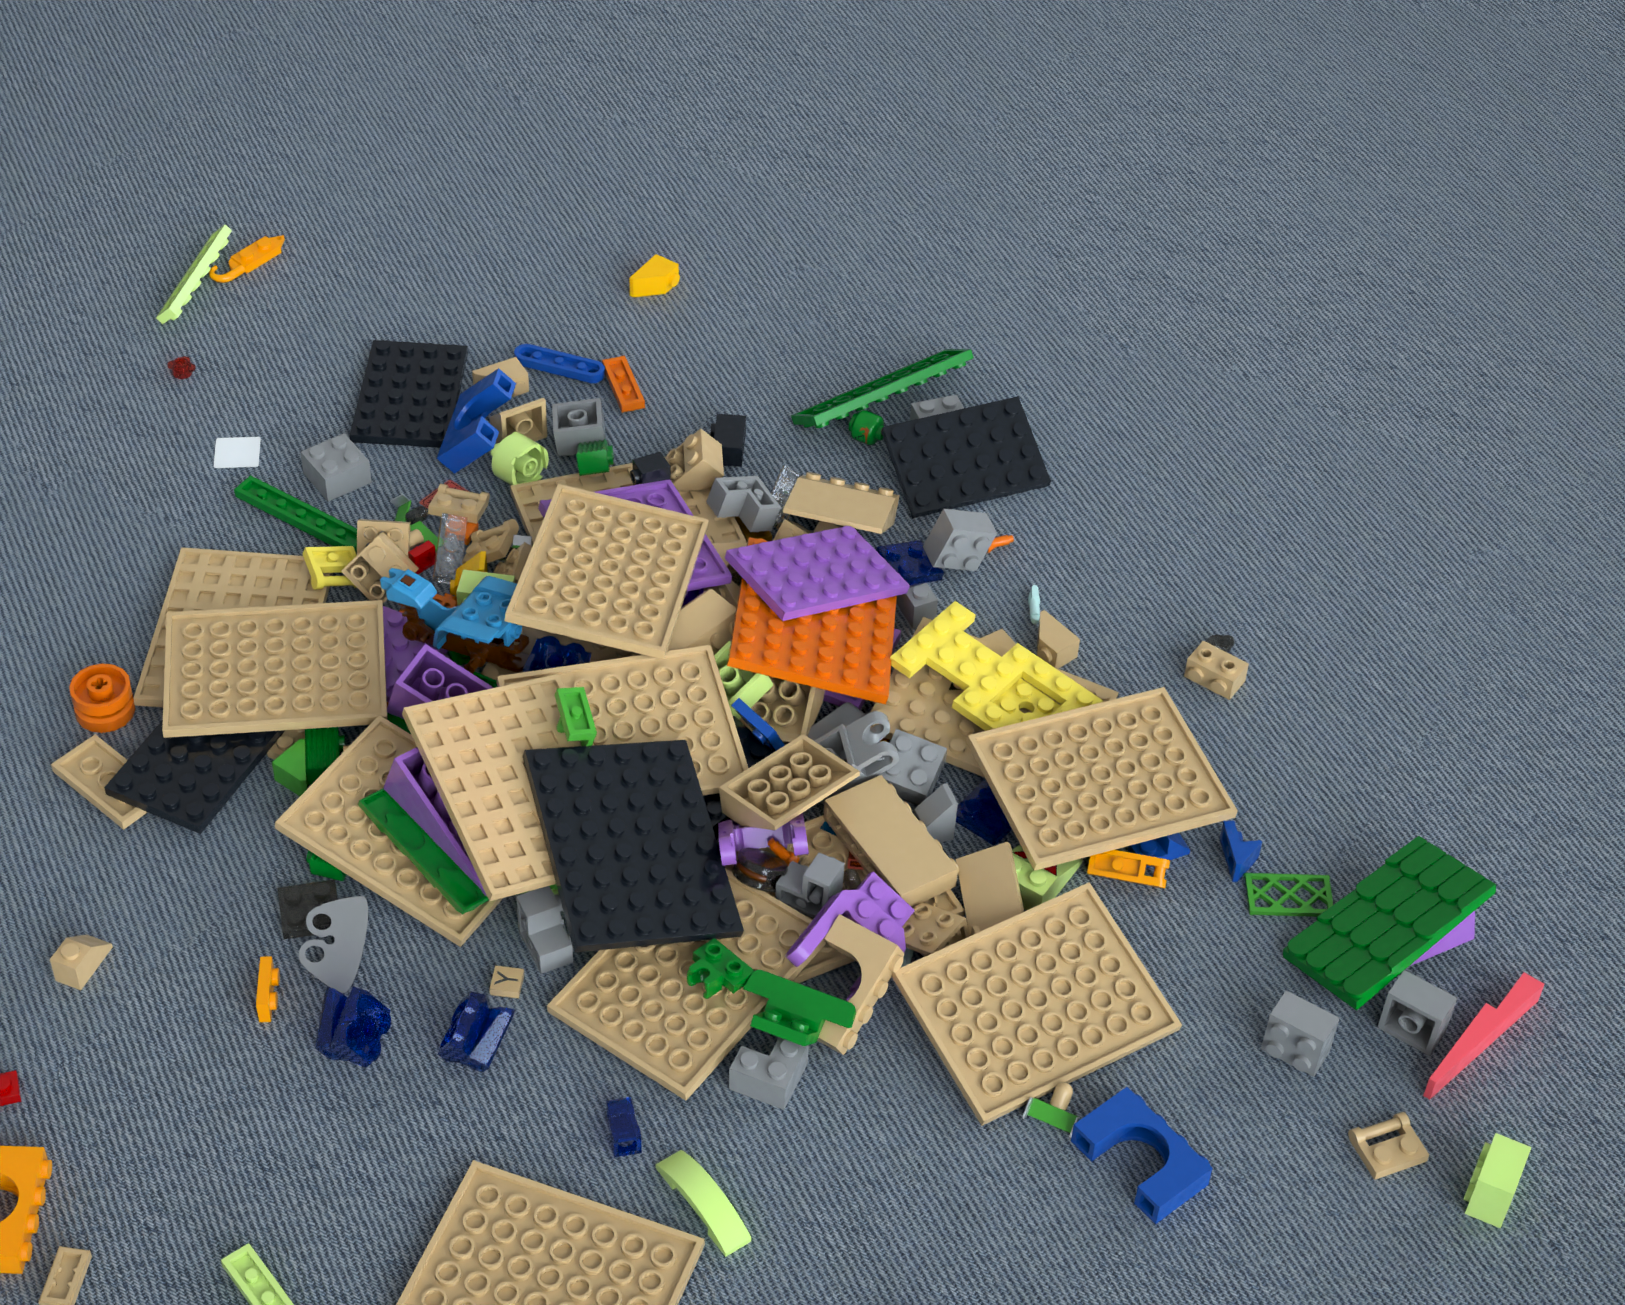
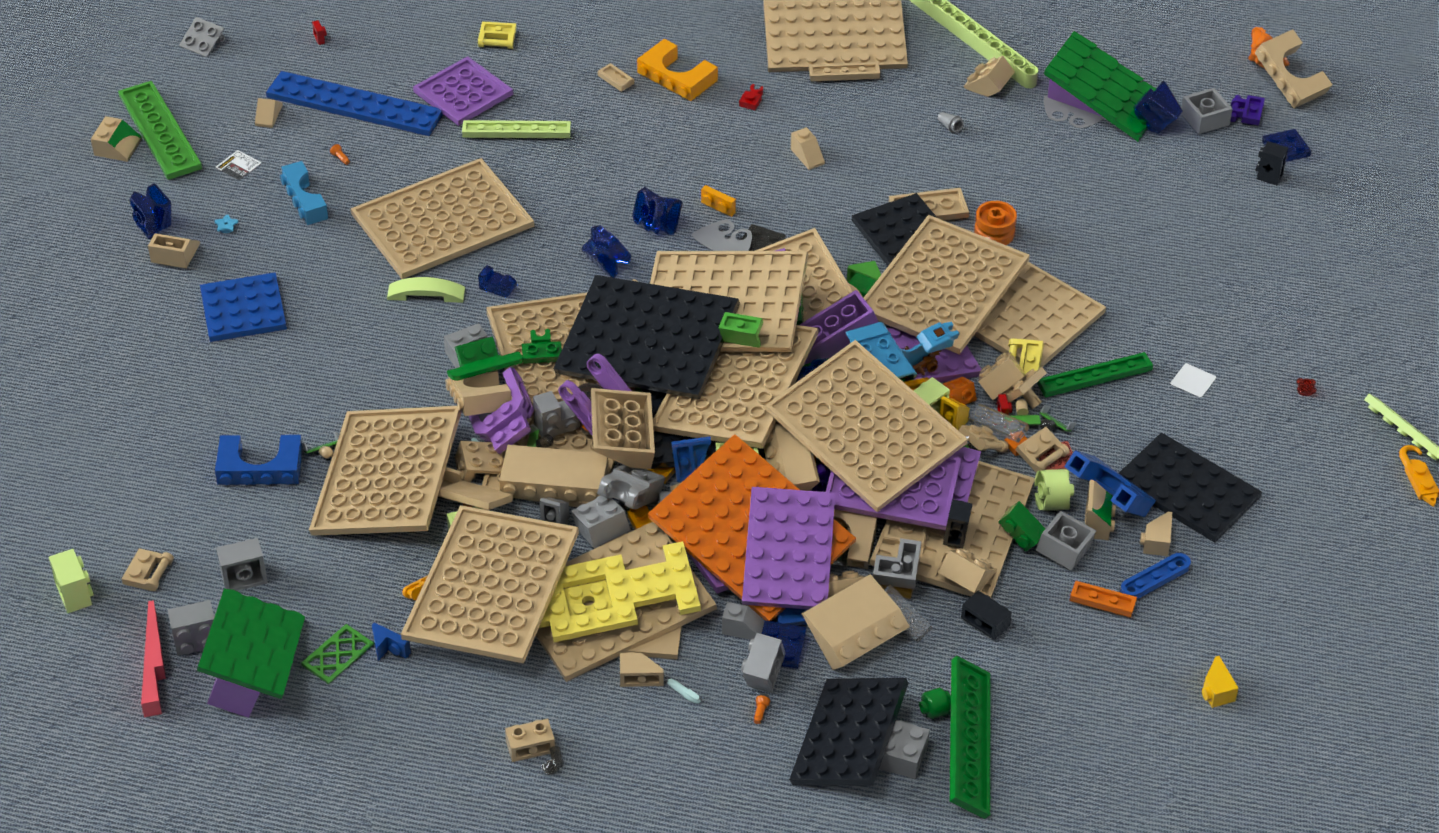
camera: 130 degrees right, 0 degrees up
(336, 467) = (1128, 407): light grey brick -> none

